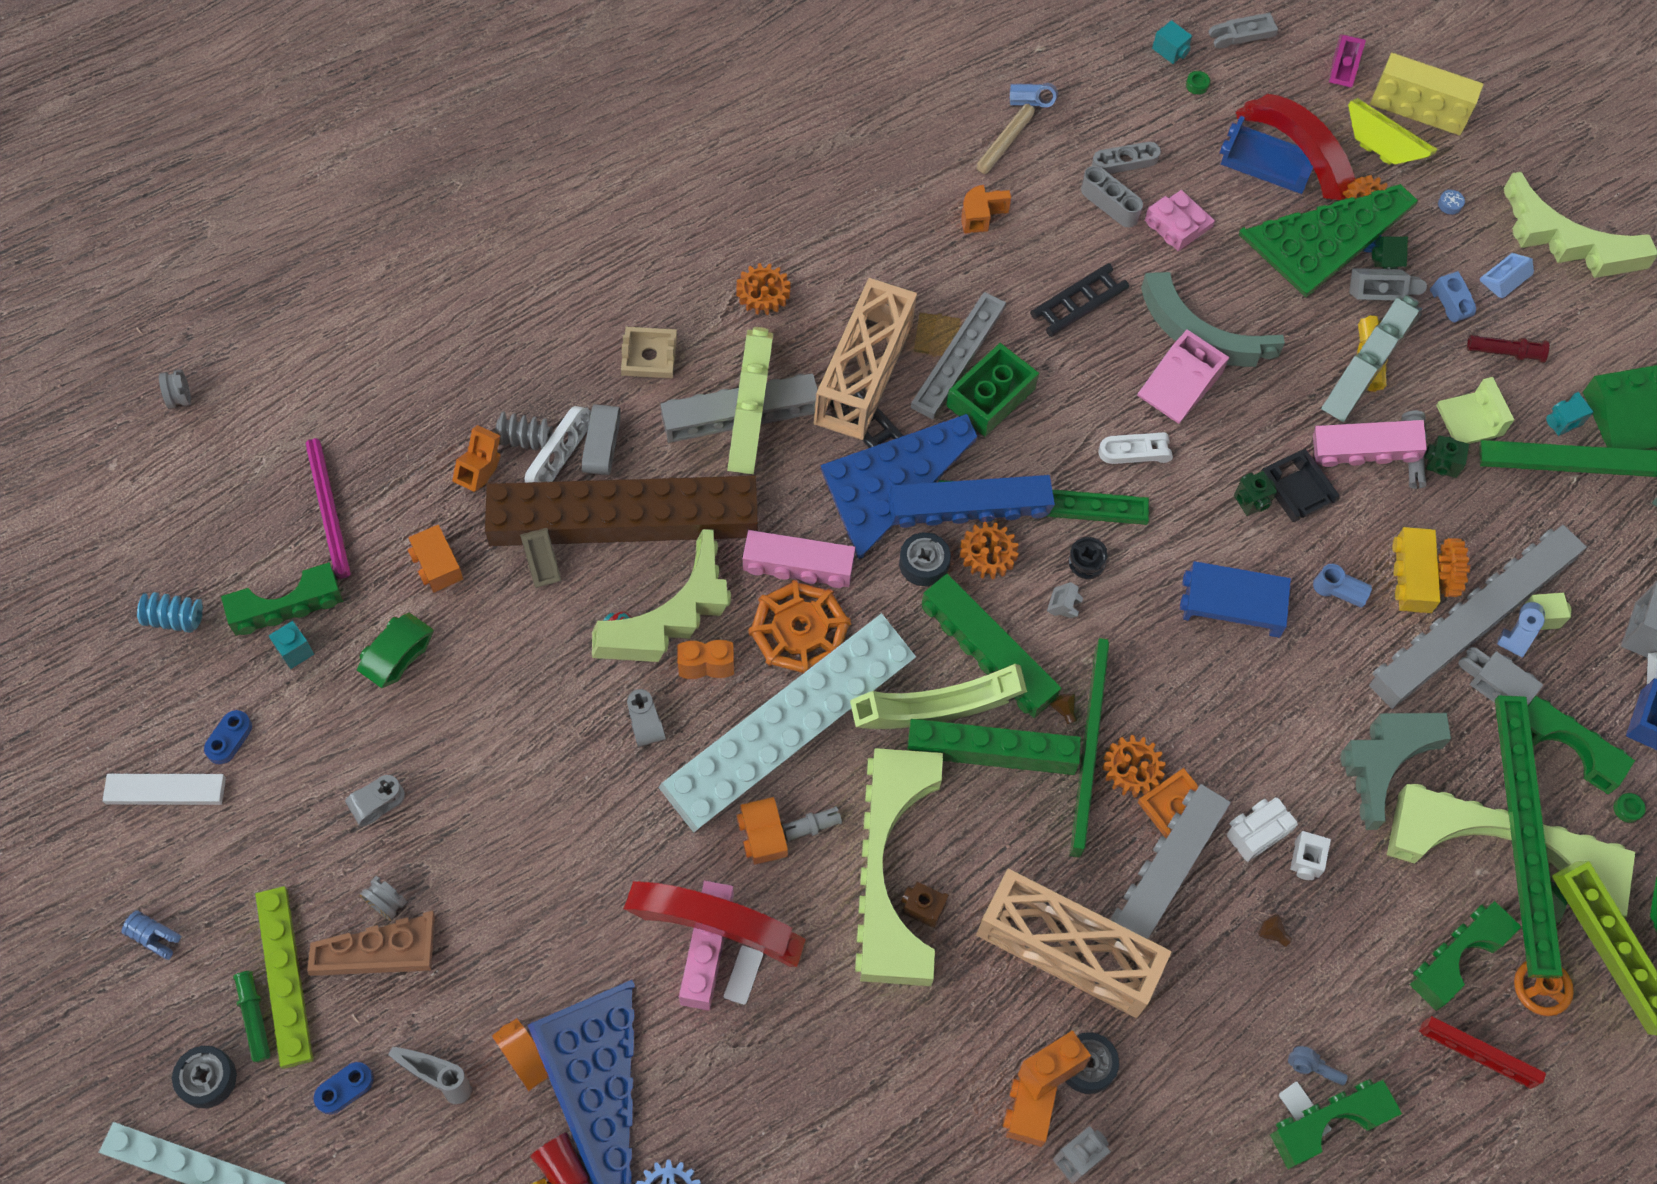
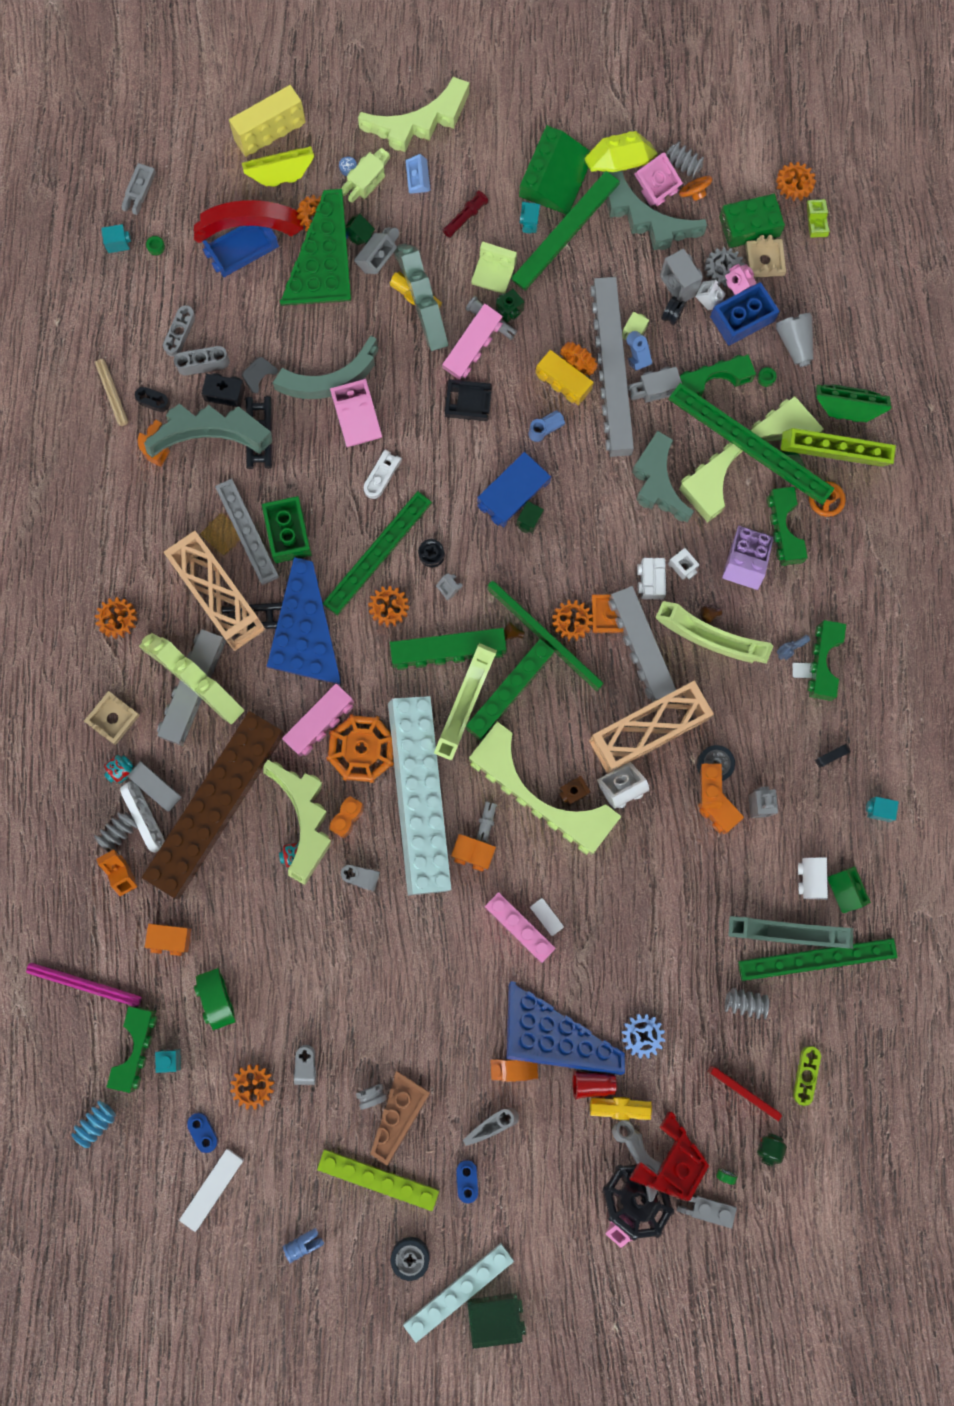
camera: 55 degrees left, 15 degrees up
(252, 1016) = (391, 1211): green axle -> none
(330, 756) = (242, 1079): none -> orange gear
(540, 557) = (213, 874): dark tan tile -> none
(595, 391) = (118, 769): none -> teal head
(715, 915) = (510, 916): red arch -> none
(919, 570) = (375, 653): wheel -> none
(971, 500) = (352, 596): blue brick -> none
(973, 960) = (623, 785): none -> white brick
(1030, 94) = (90, 354): medium blue piece -> none
(1035, 178) = (151, 403): none -> black beam
(1047, 240) = (208, 423): none -> sand green arch
(1097, 236) = (223, 390): none -> black brick
(1144, 253) = (256, 371): none -> dark grey piece
(1178, 220) = (246, 333): bright pink plate -> none
(1218, 638) = (529, 517): none -> dark green brick
(1244, 943) = (710, 637): none -> yellowish green arch
(1255, 493) = (457, 429): dark green brick -> none
(1346, 60) = (206, 145): dark pink slope -> none
(1383, 931) = (748, 558): none -> lavender slope
(1454, 297) = (413, 217): medium blue leg -> none
(1457, 223) = (366, 175): none -> yellowish green hinge
(1482, 1052) = (840, 558): red tile -> none
(1607, 639) = (673, 310): none -> black wheel

